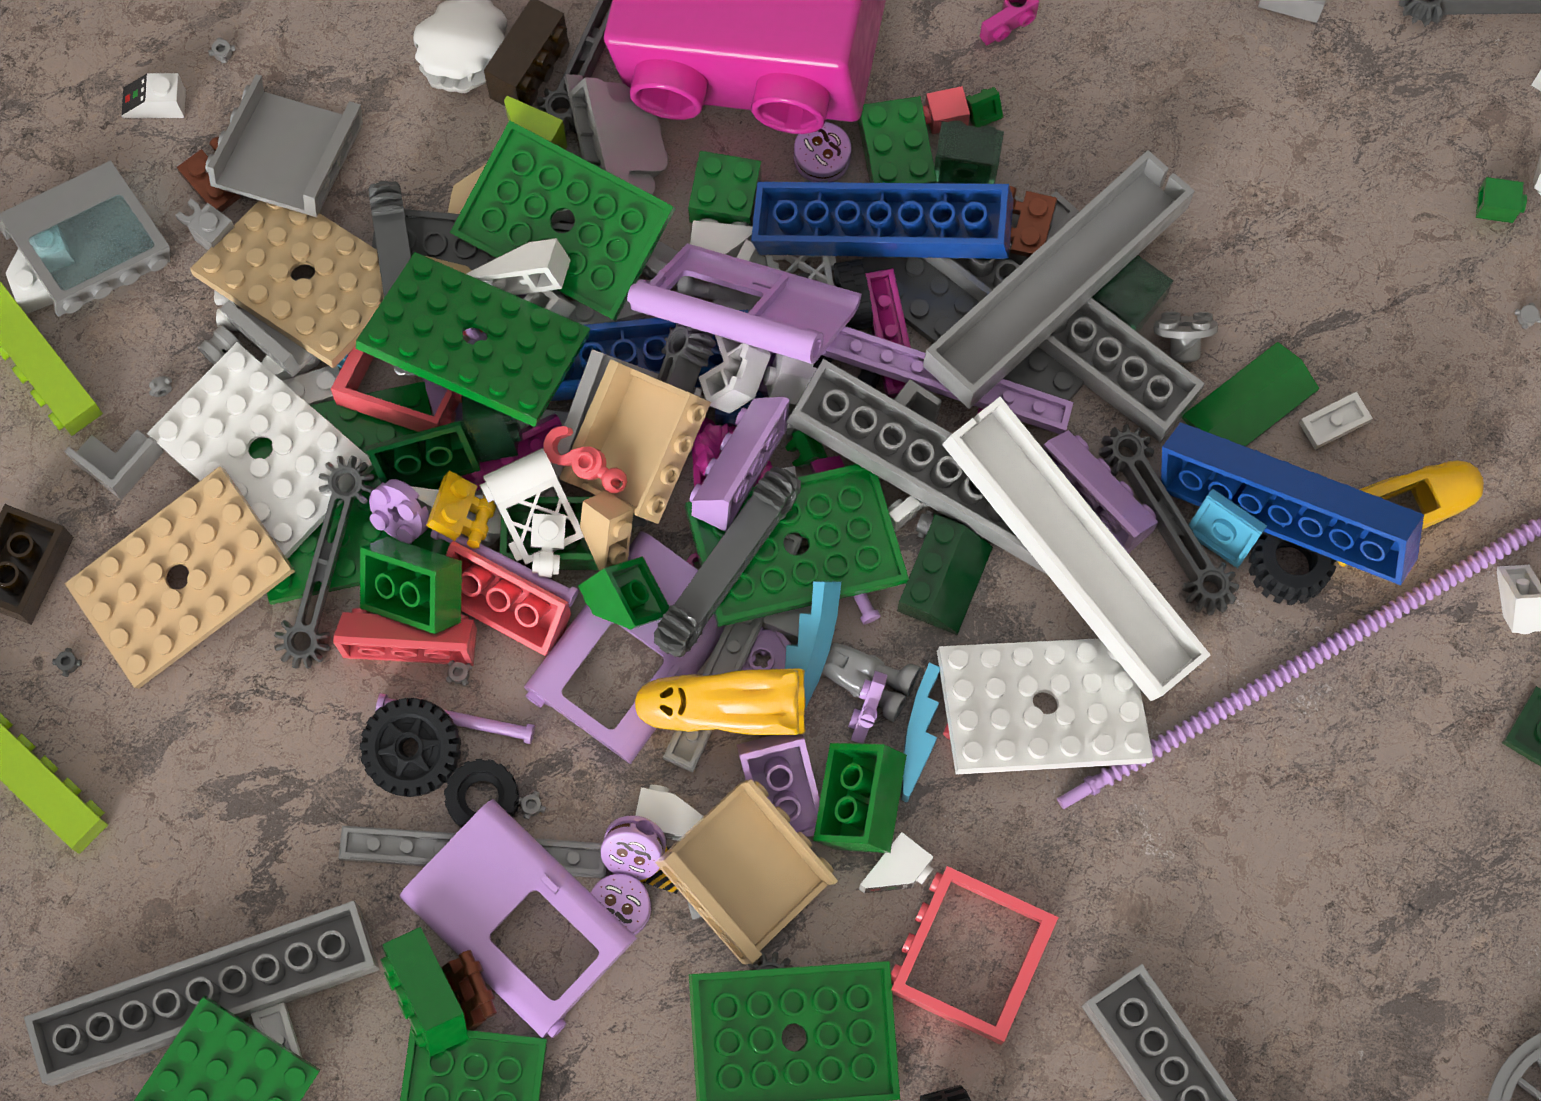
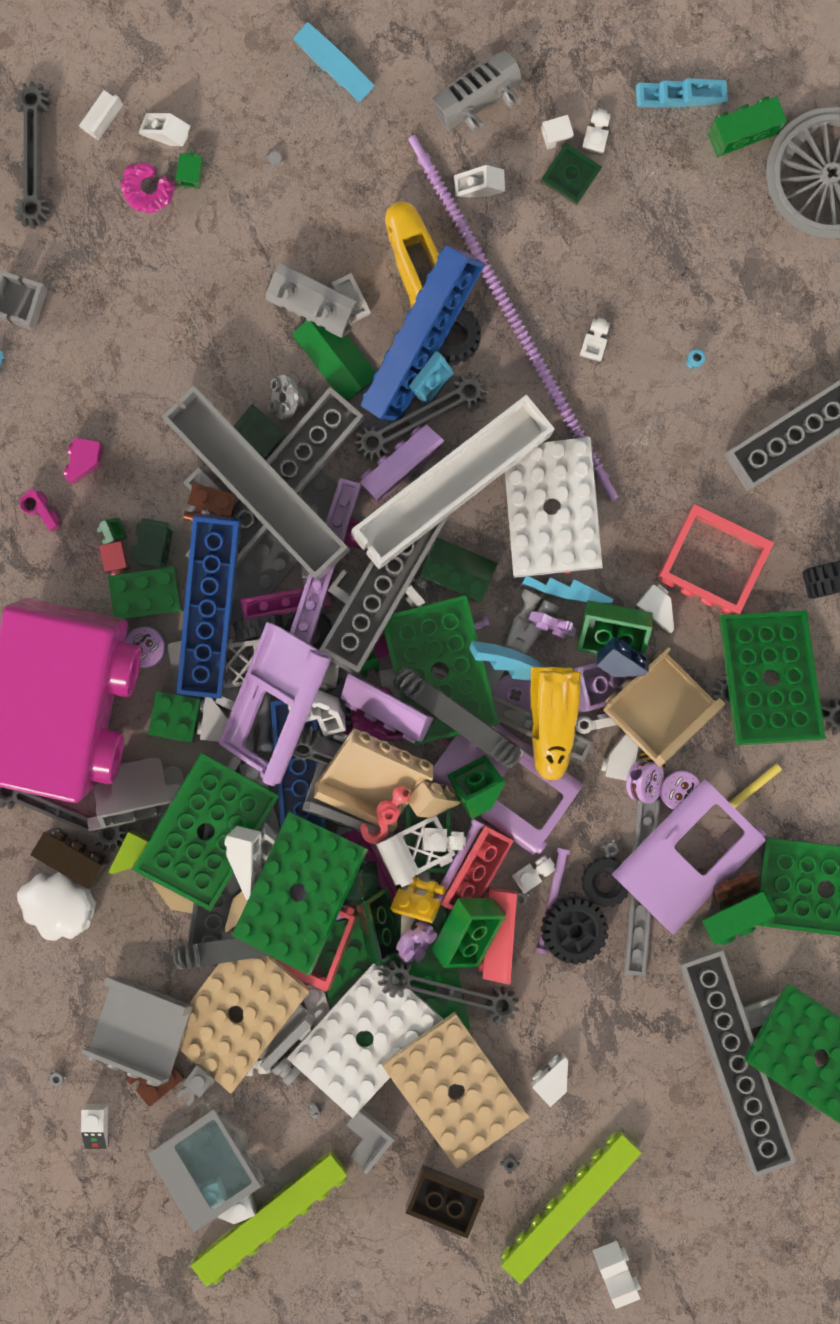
camera: 90 degrees left, 15 degrees up
(184, 721) = (552, 1082): none -> white slope
(492, 684) = (528, 877): none -> white plate
(625, 1022) = (754, 786): none -> light yellow bar
(721, 784) = (602, 722): none -> white plate
(817, 804) = (621, 660): none -> slope
(1081, 69) = (84, 459): none -> dark pink slope
(1288, 916) = (699, 355): none -> medium azure pin
(1291, 769) = (593, 344): none -> white plate
(1328, 359) = (311, 300): none -> light grey piece
(1465, 124) = (131, 187): none -> dark pink piece

